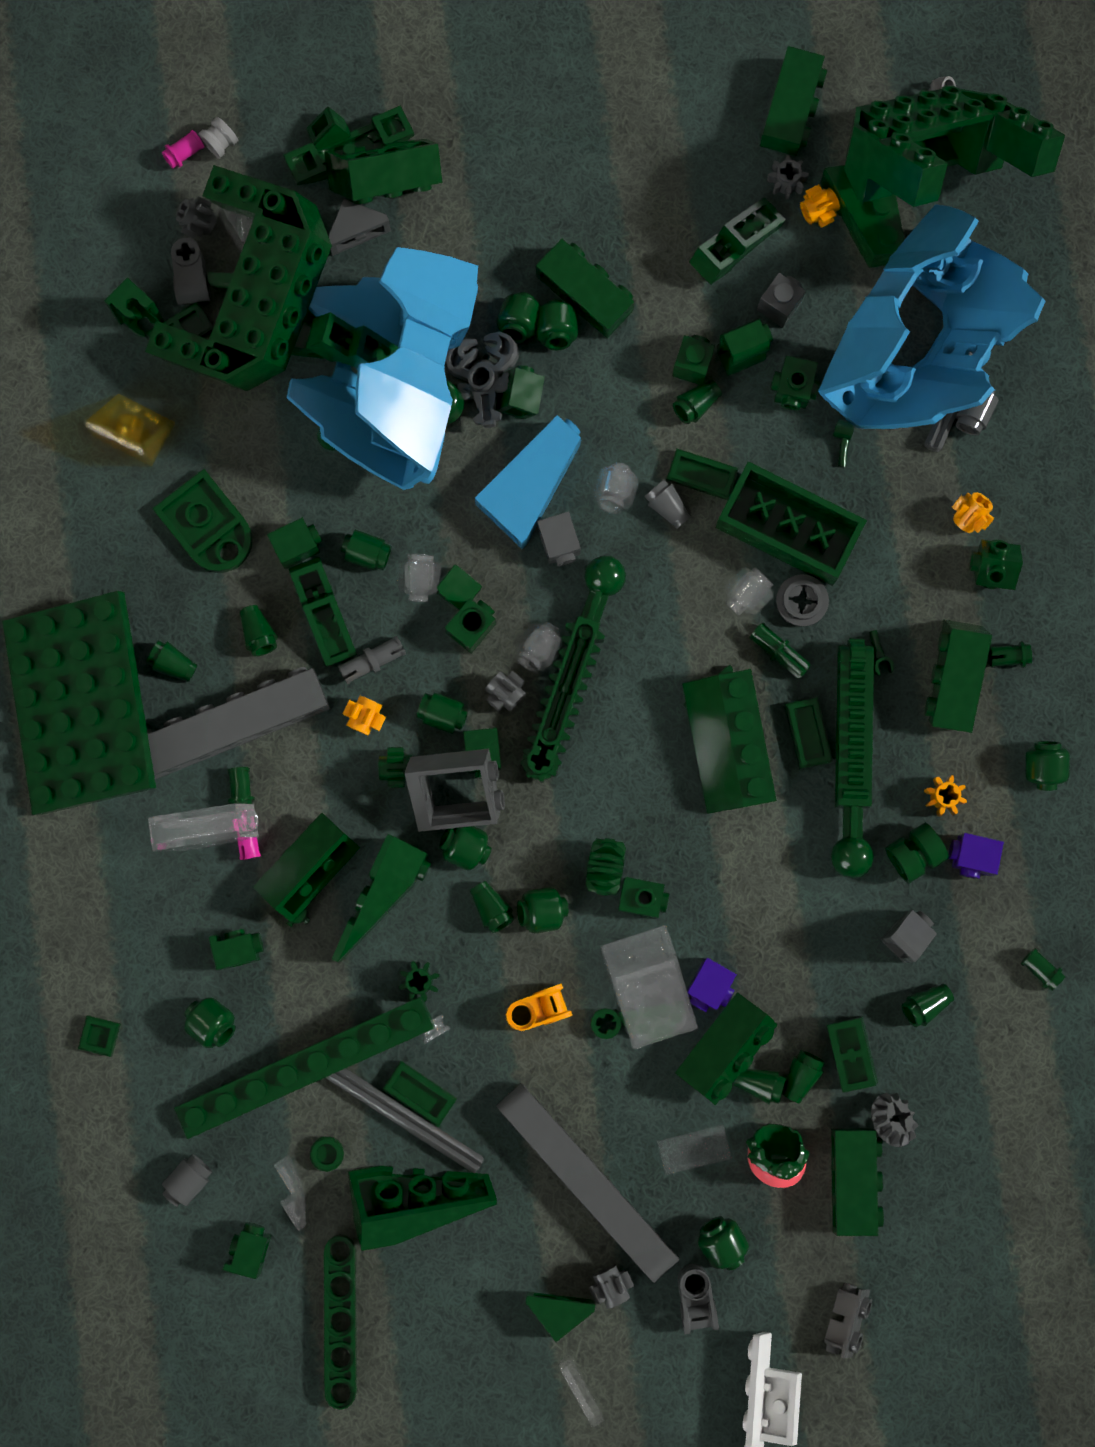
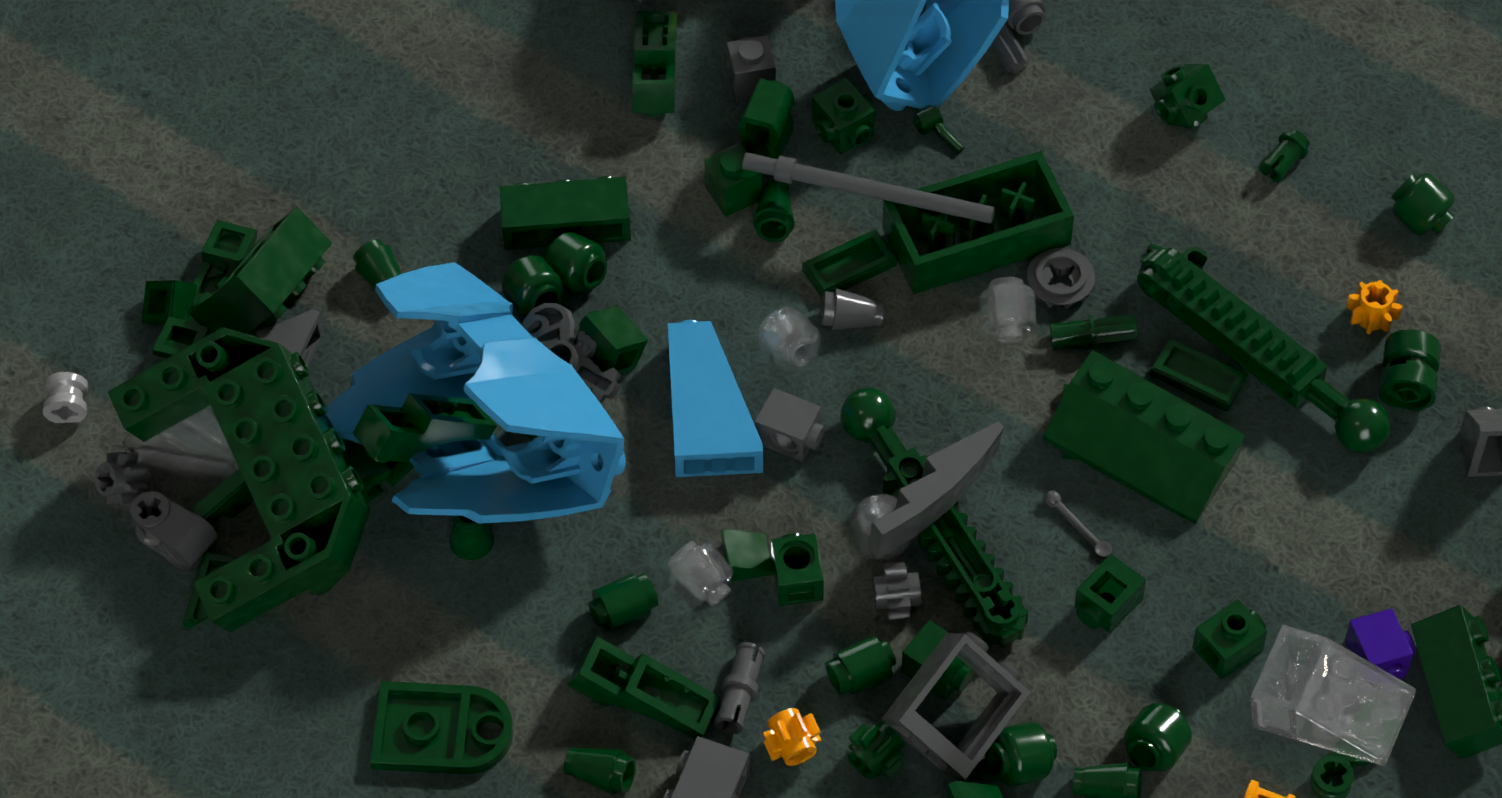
camera: 45 degrees left, 25 degrees down
(130, 428) = (269, 718): clear yellow slope -> none
(131, 305) = (154, 592): dark green hinge -> none
(182, 149) = (39, 440): dark pink pin -> none
(295, 542) = (546, 658): dark green brick -> none
(454, 224) = (376, 262): none -> dark green cone
(589, 662) = (943, 482): none -> dark grey slope
(605, 866) = (1168, 639): dark green gear -> none
(618, 799) = (1109, 582): none -> dark green brick
(642, 777) = (1101, 548): none -> dark grey hinge
(715, 391) = (786, 170): none -> dark grey bar
(958, 675) = (1264, 202): dark green wedge -> none
(973, 512) = (1116, 77): light orange gear -> none
(976, 855) = (1460, 324): dark purple brick -> none

